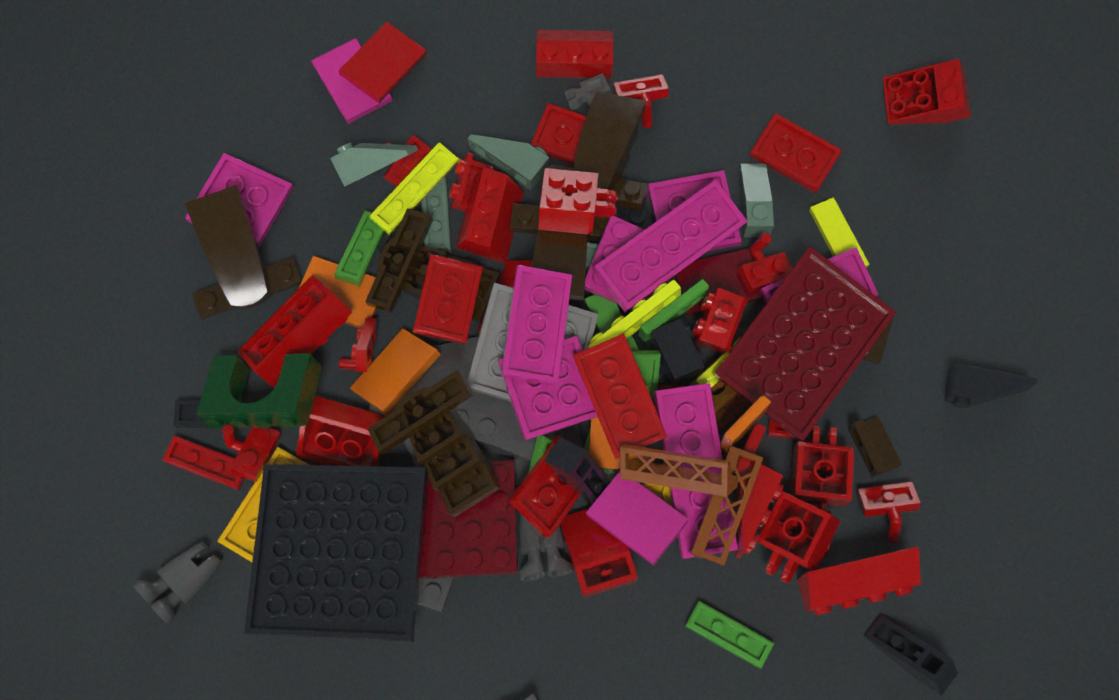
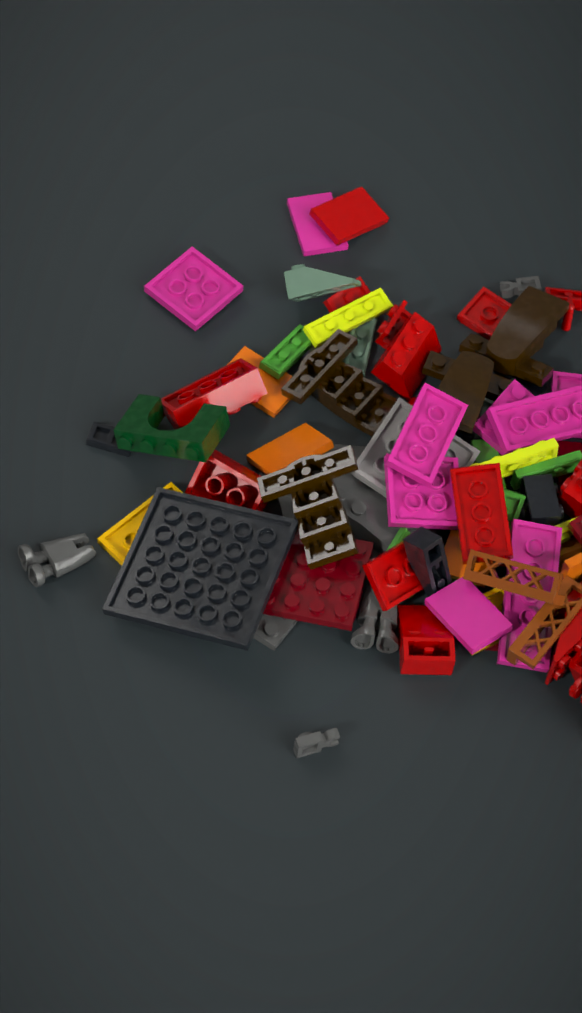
camera: 10 degrees right, 15 degrees down
(202, 462) = (105, 477): red tile -> none
(234, 256) = (179, 326): dark brown slope -> none
(253, 452) = (148, 478): red plate -> none
(362, 351) = (268, 426): red plate -> none
(447, 299) = (352, 406): red tile -> none
(514, 158) = (448, 321): sand green slope -> none
(572, 201) = (484, 355): red hinge -> none
(574, 53) = (516, 256): red slope -> none
(729, 634) = (521, 739): bright green tile -> none

